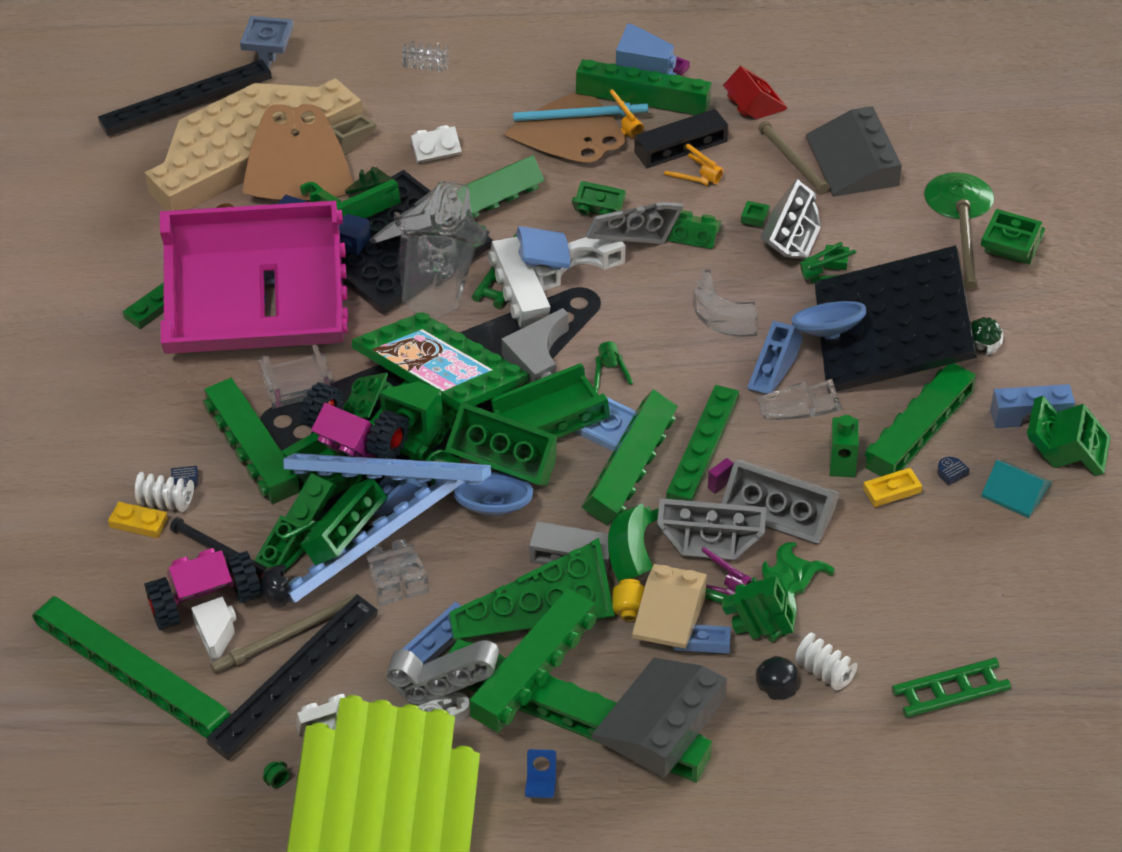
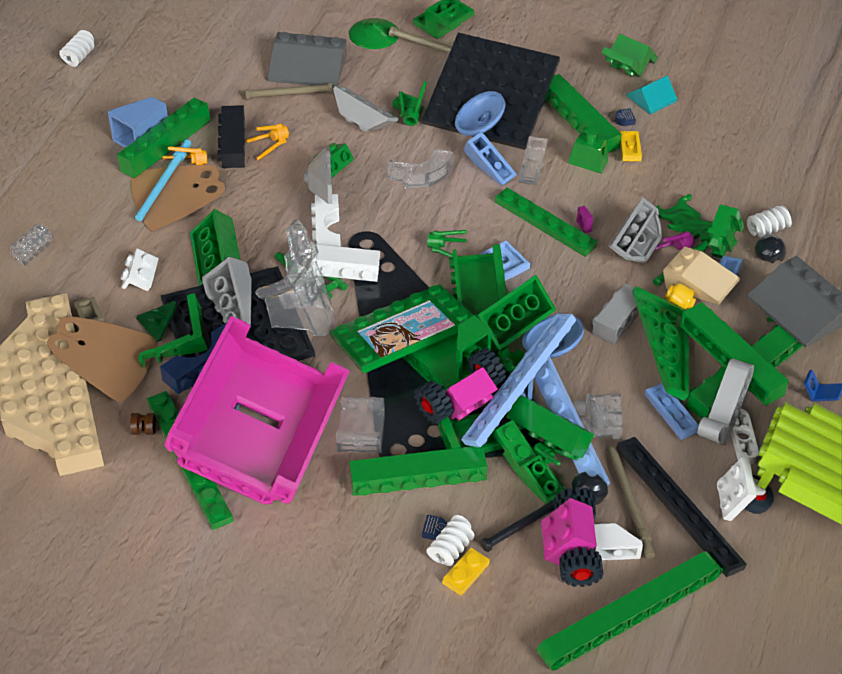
camera: 70 degrees left, 0 degrees up
(276, 774) = (770, 540): green plate -> none
(365, 394) = (414, 375): green hinge -> none
(531, 345) = (411, 276): light grey arch -> none
(543, 248) = (326, 231): medium blue slope -> none
(598, 199) = (269, 197): green bracket -> none
(627, 542) = (633, 275): green arch -> none
(630, 457) = (549, 256): green brick -> none
(753, 94) = (212, 87): red slope -> none
(755, 214) = (336, 126): green plate -> none
(791, 502) = (619, 196): light grey slope -> none
(942, 700) = (798, 183): green bar -> none
(1013, 404) = (591, 63): medium blue arch -> none

